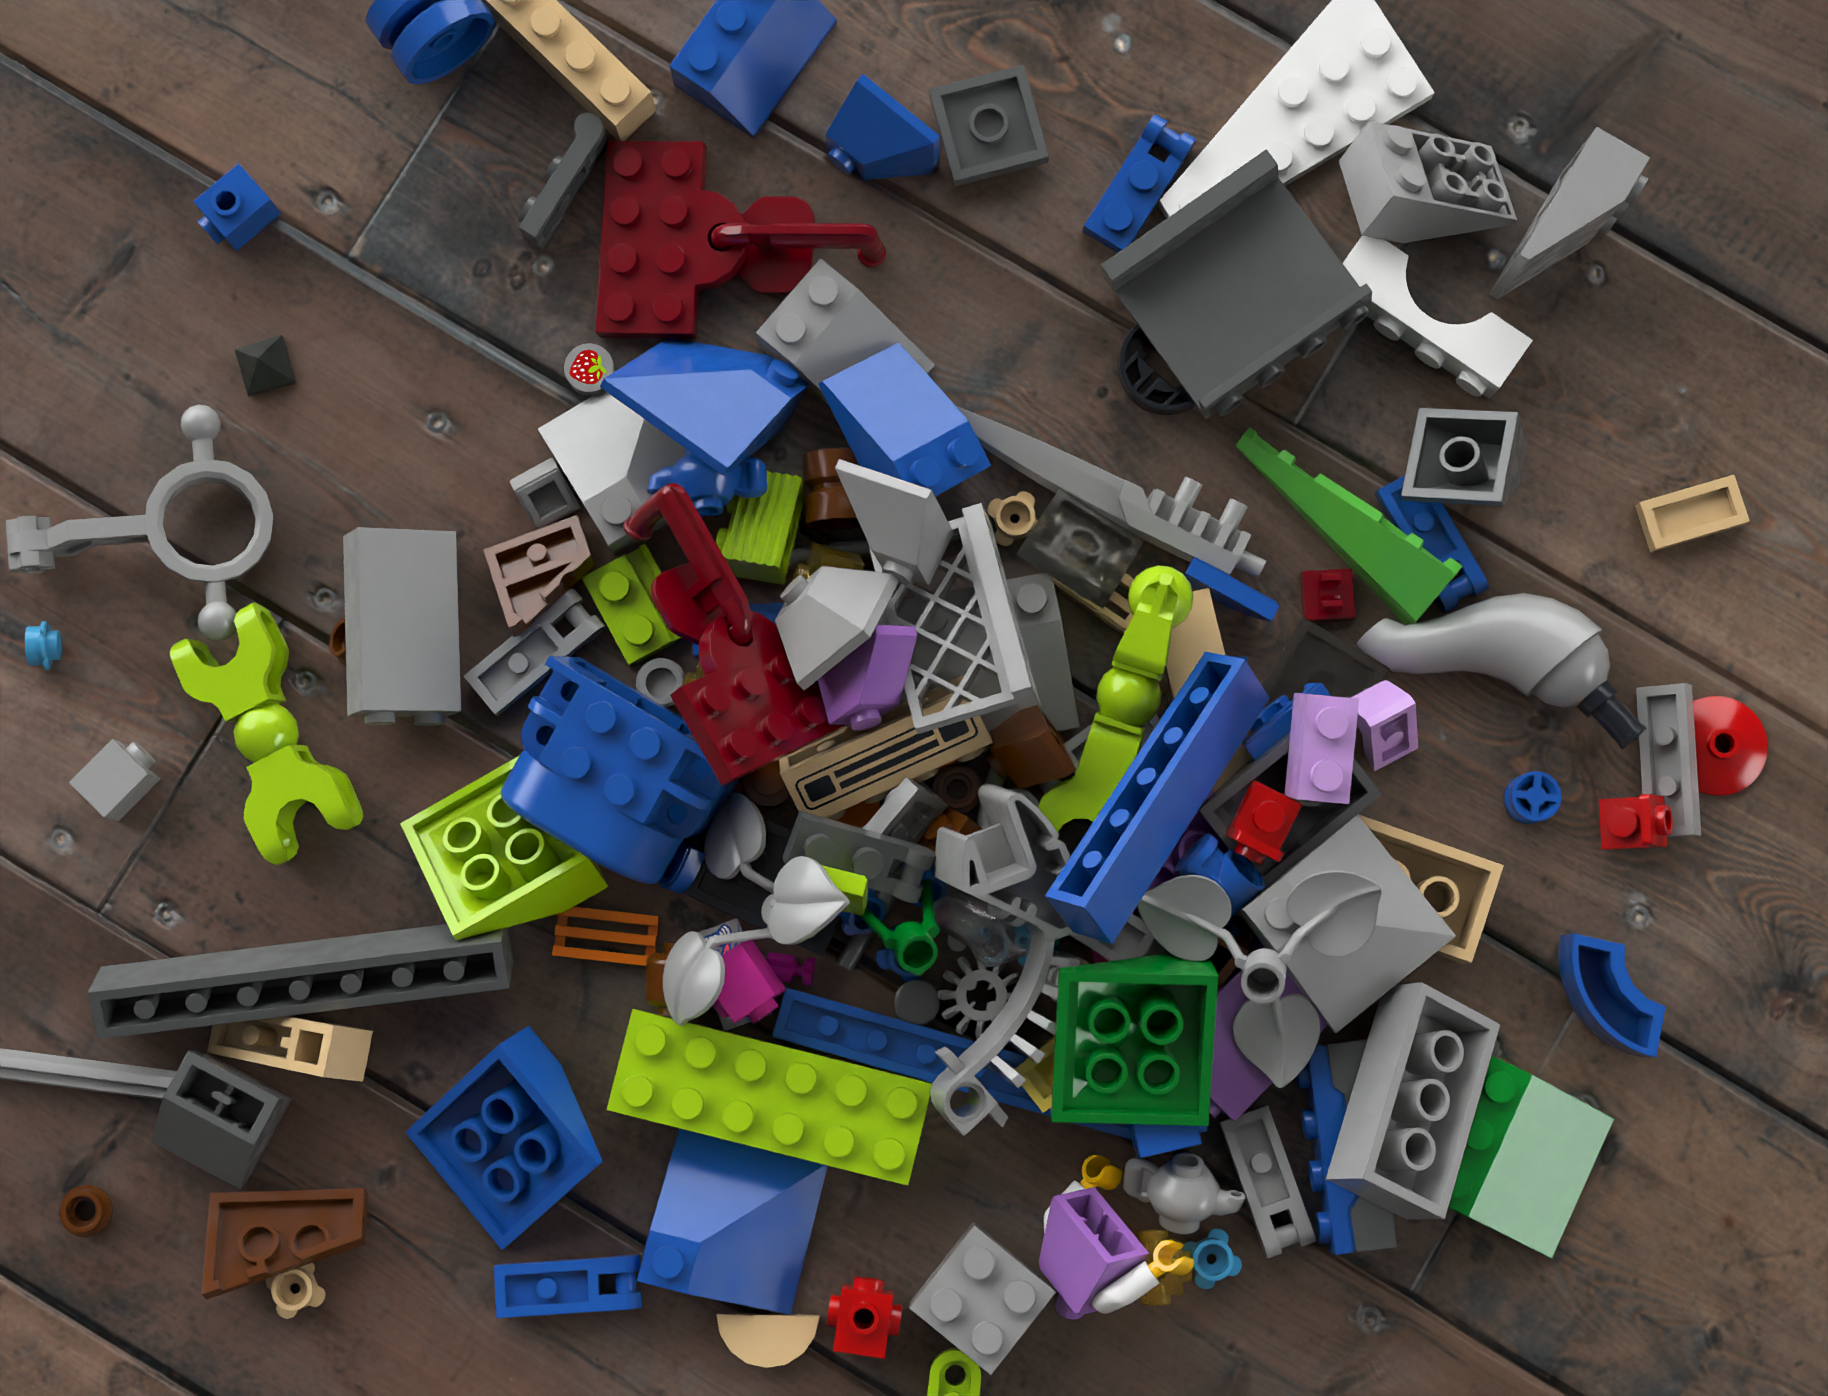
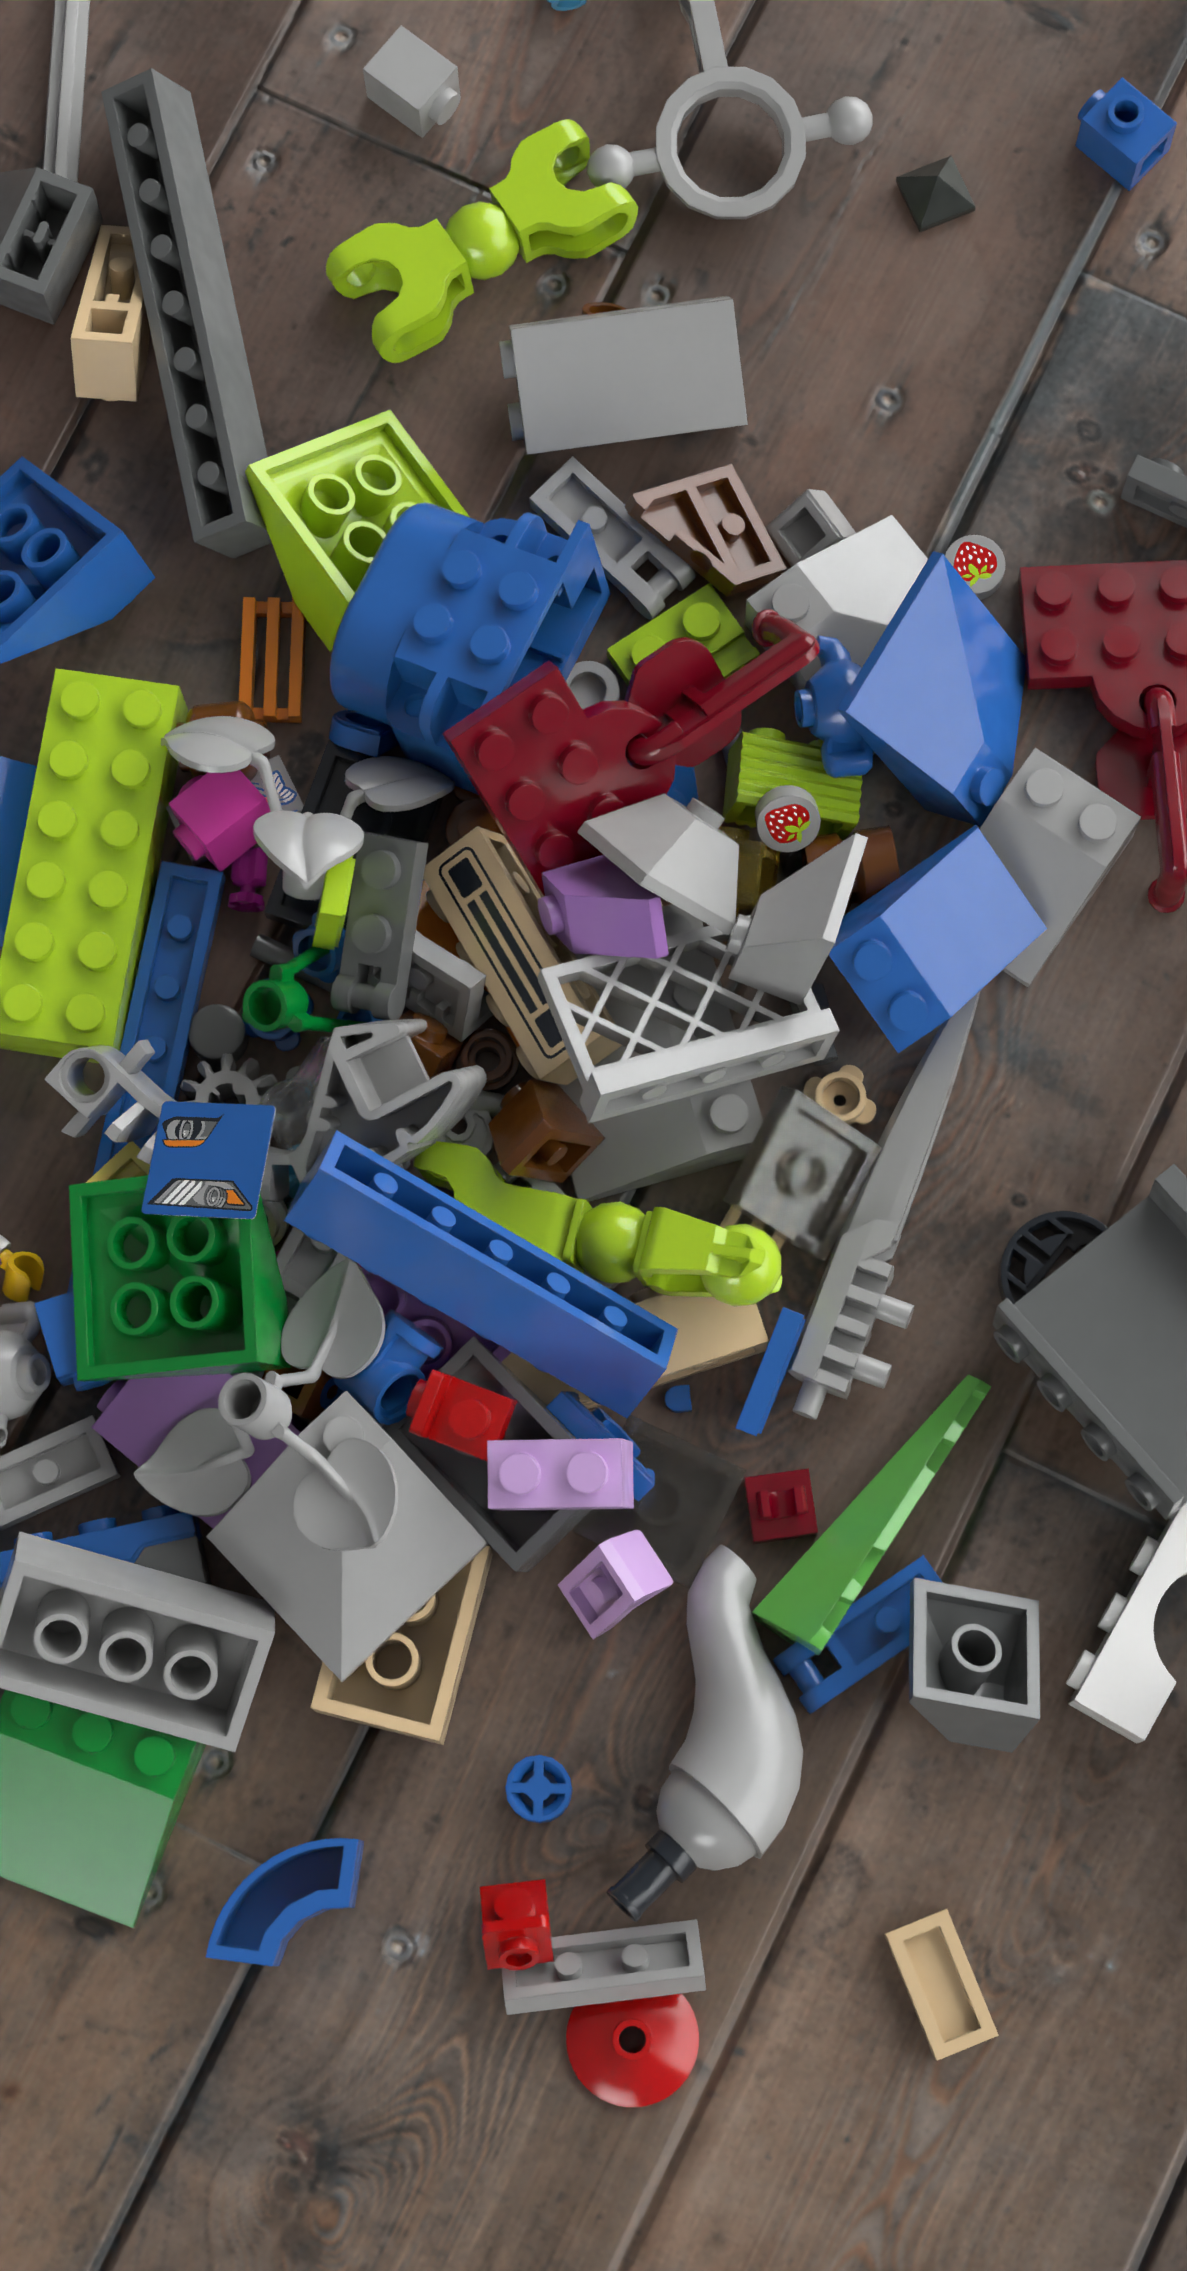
camera: 90 degrees right, 5 degrees down
(797, 529) = (787, 818): none -> light grey tile
(1051, 1003) = (208, 1160): none -> blue sticker

